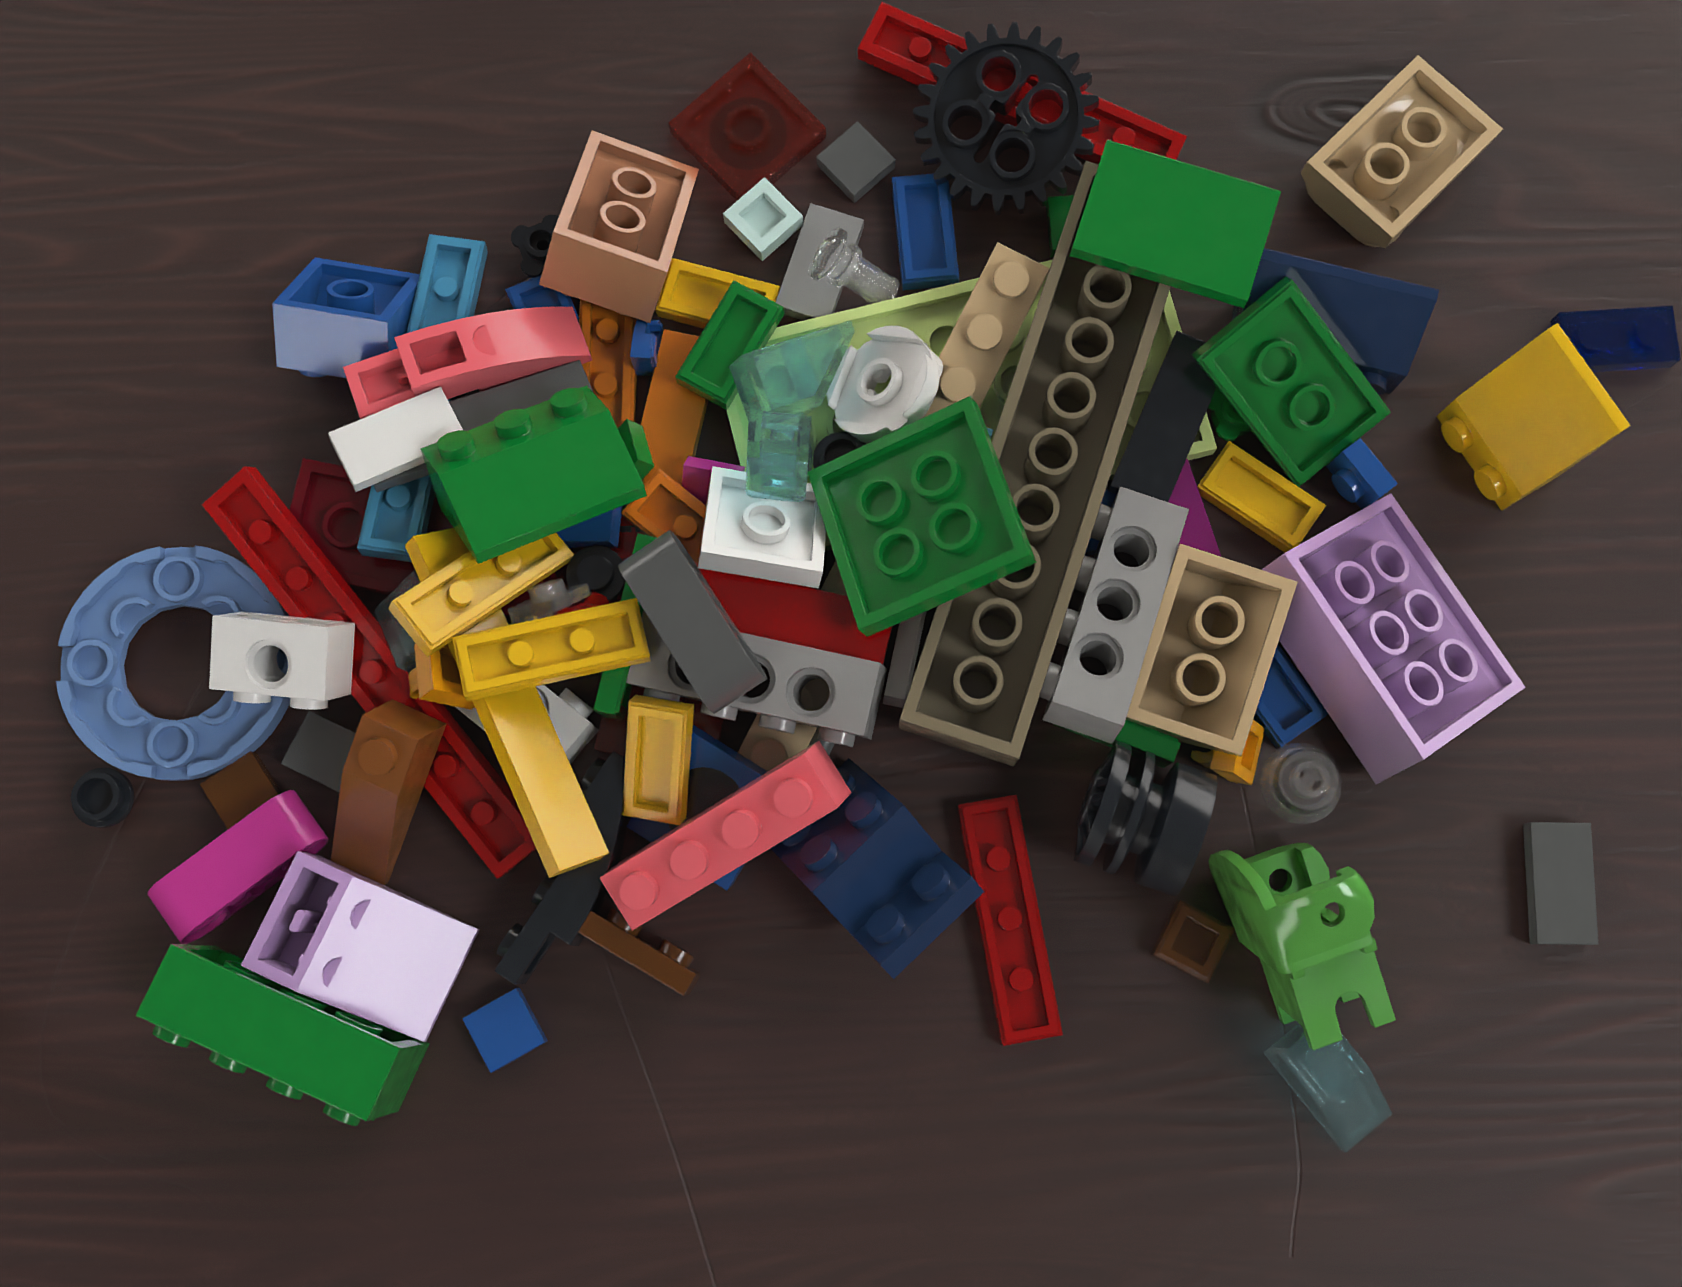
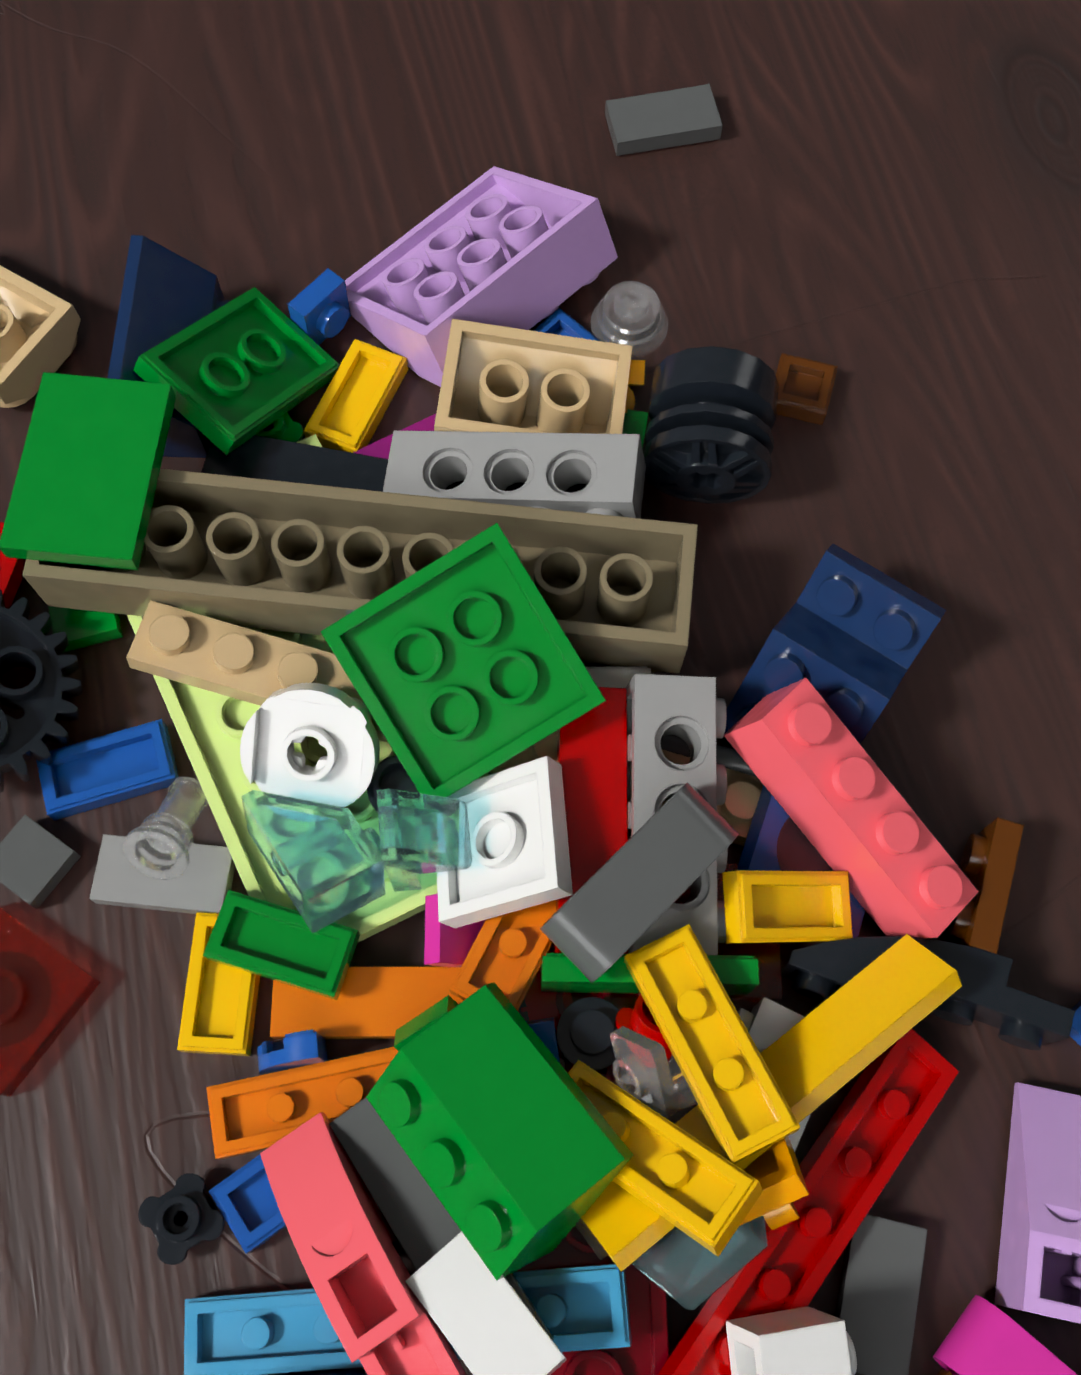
camera: 105 degrees left, 10 degrees down
(383, 787) = (903, 1225): dark orange slope -> none
(619, 227) = (149, 1115): nougat slope -> none
(763, 219) = (115, 949): light aqua plate -> none
(1009, 921) = (869, 530): red tile -> none
(1302, 946) = (797, 274): bright green piece -> none
(1332, 1085) = (886, 264): clear light blue slope -> none
(1531, 419) = (246, 158): yellow slope -> none
(1623, 337) = (147, 138): clear blue plate -> none

